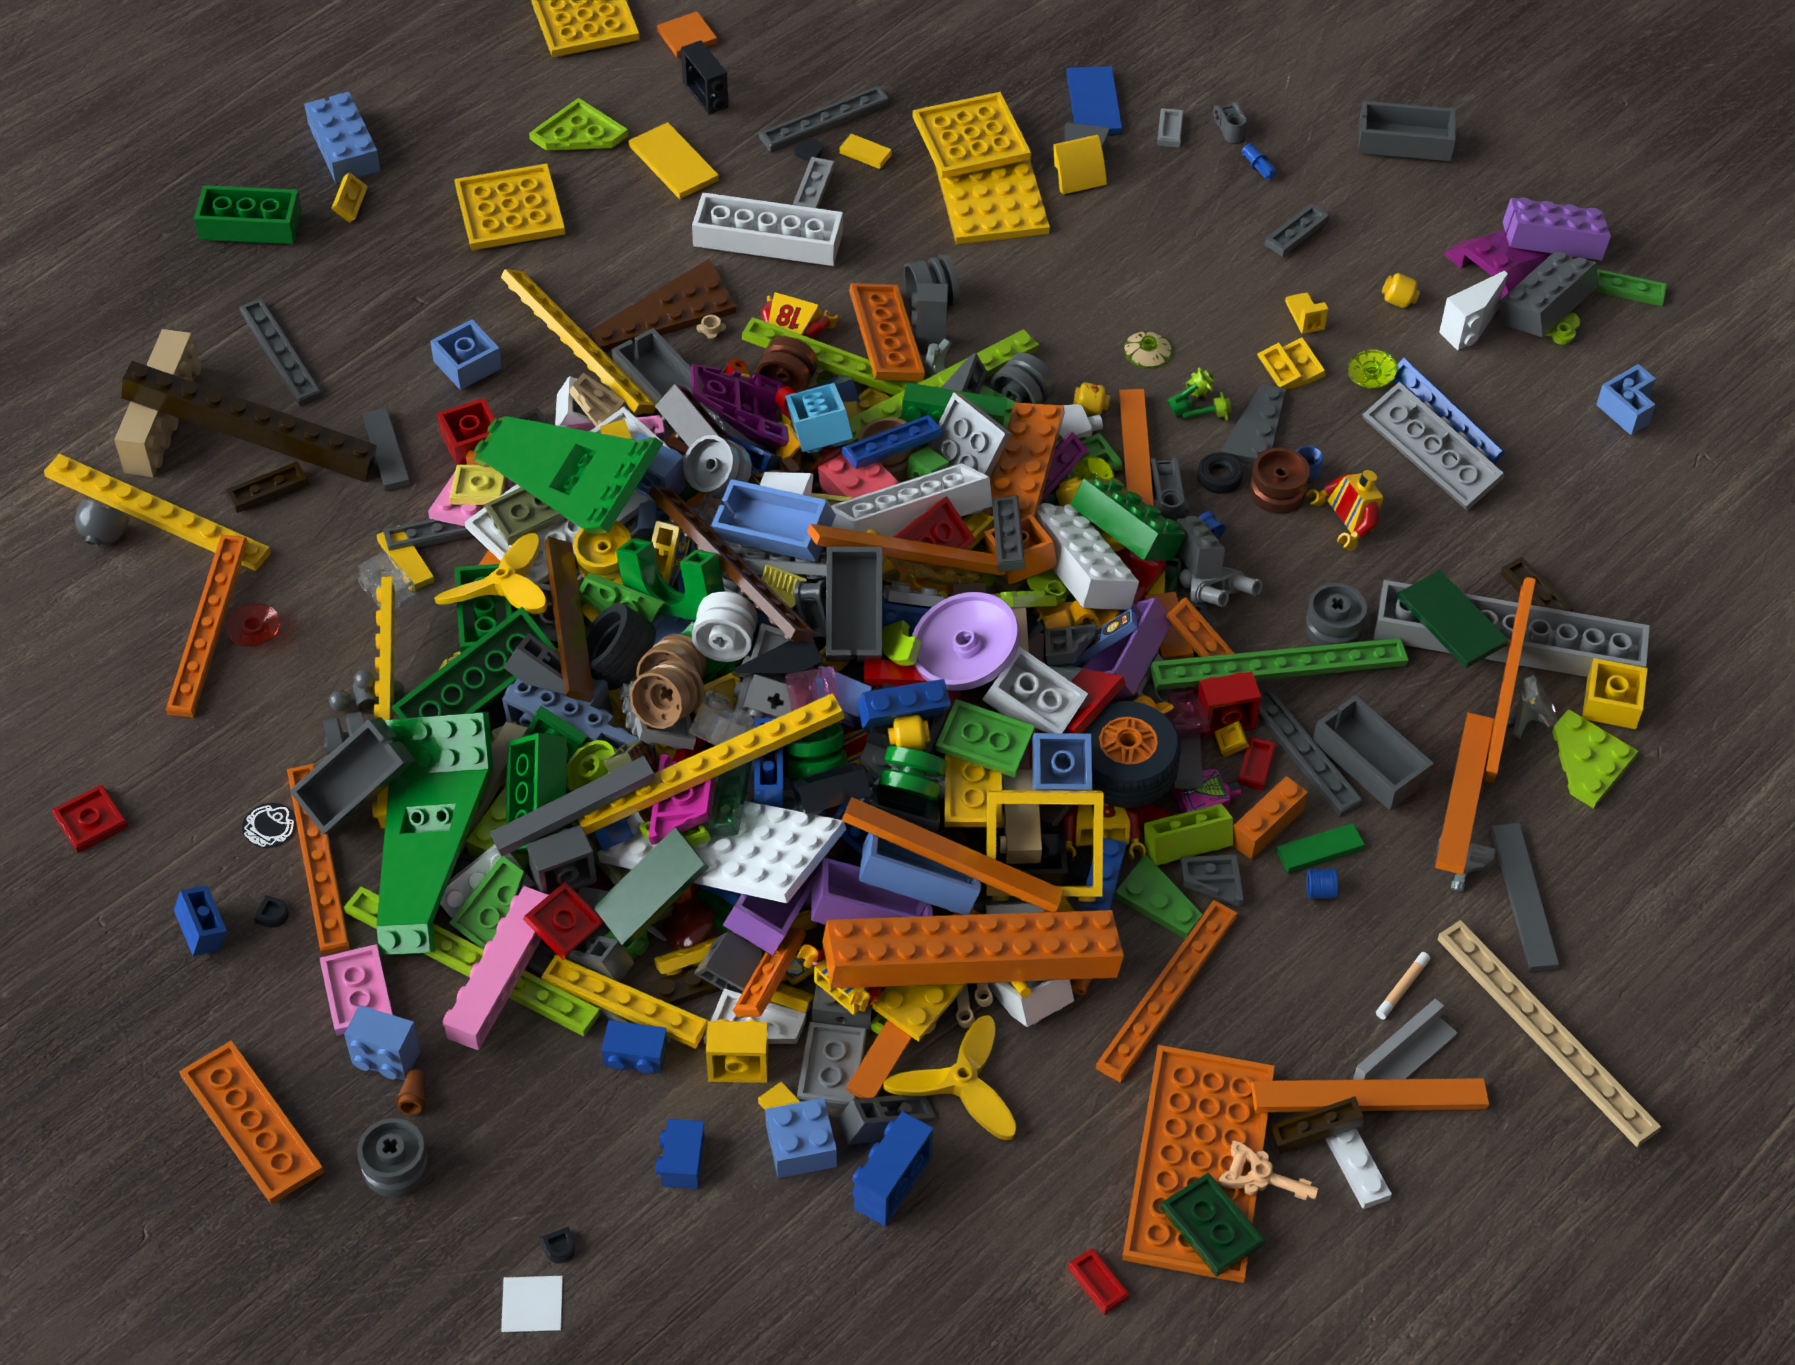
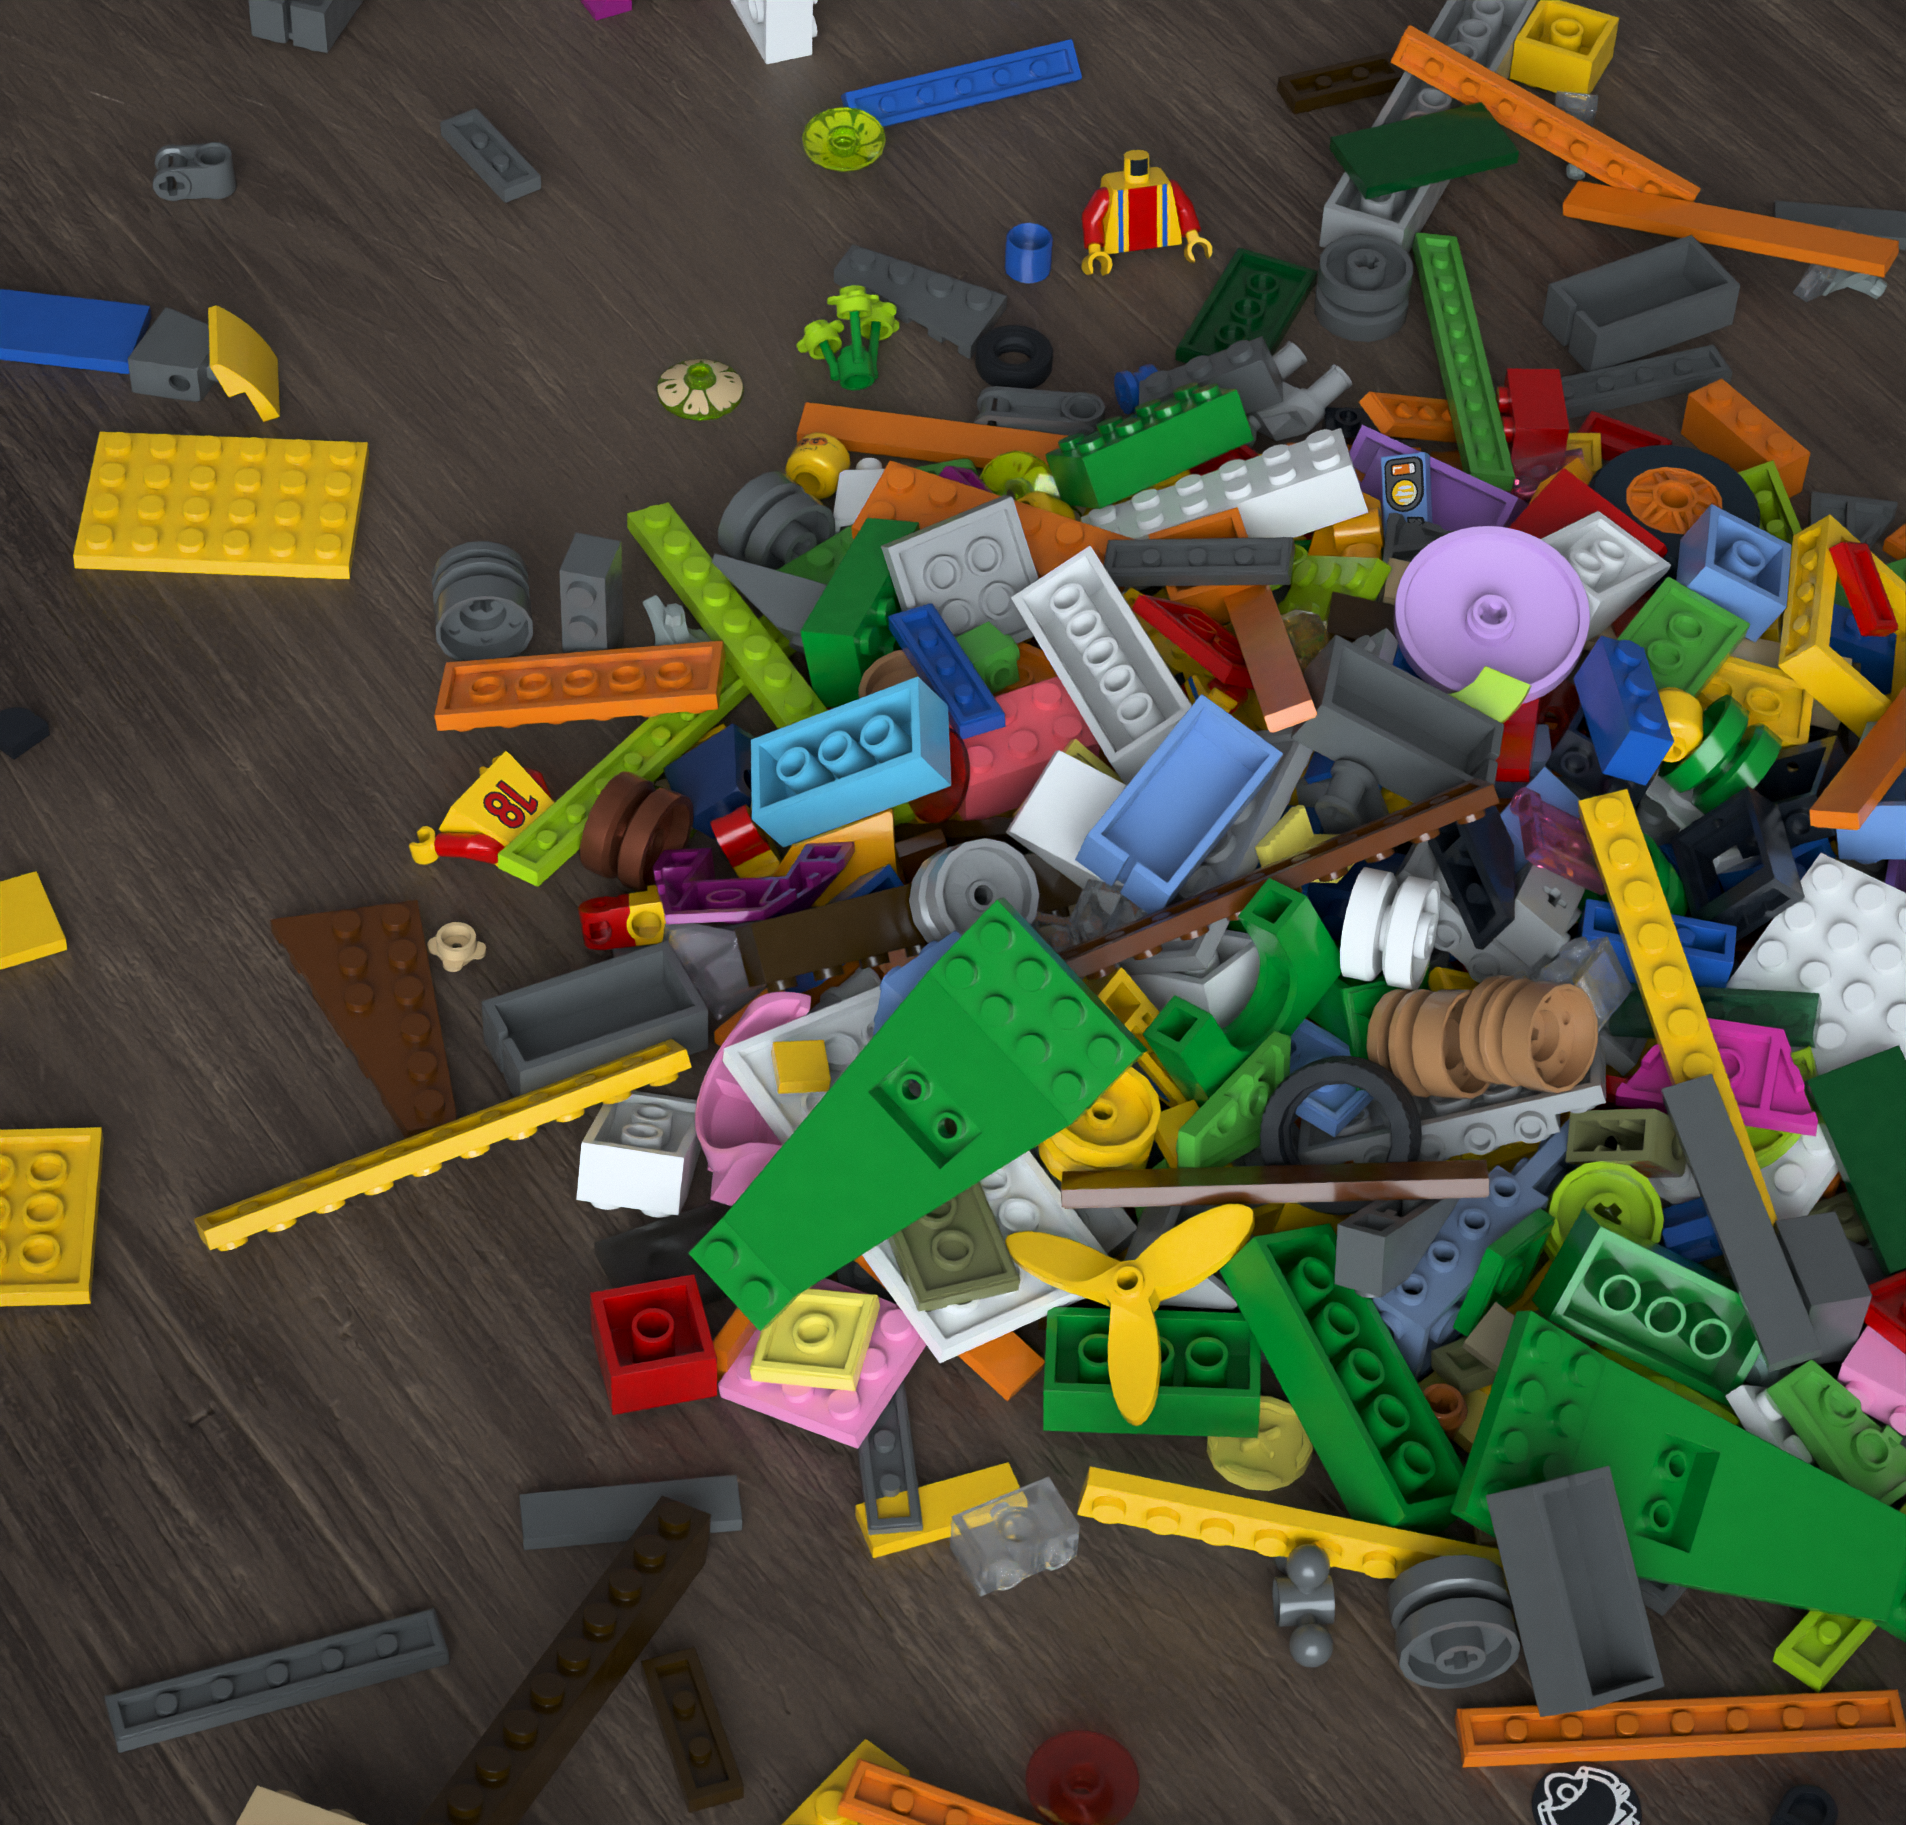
camera: 80 degrees left, 5 degrees down
(466, 354) = (428, 1327): medium blue brick -> none
(595, 399) = (663, 1110): tan wing -> none
(767, 229) = (237, 813): white brick -> none
(814, 183) = (127, 737): light grey plate -> none
(865, 151) = (54, 653): yellow tile -> none
(971, 135) = (105, 484): yellow plate -> none
(1060, 824) = (1864, 589): none -> red tile
(1170, 128) = (167, 252): light grey tile -> none
(1259, 161) = (307, 163): blue axle -> none
(1279, 480) = (1067, 284): copper wheel -> none
(1292, 364) = (794, 228): yellow slope -> none
(1299, 570) = (1248, 301): none -> dark green tile
(1307, 315) = (690, 189): yellow bracket -> none
(1320, 848) = (1794, 406): green tile -> none
(1322, 883) = (1871, 429): blue piece -> none
(1400, 290) = (678, 72): yellow head -> none
(1434, 446) = (1030, 111): light grey plate -> none
(1590, 757) = (1664, 109): lime plate -> none

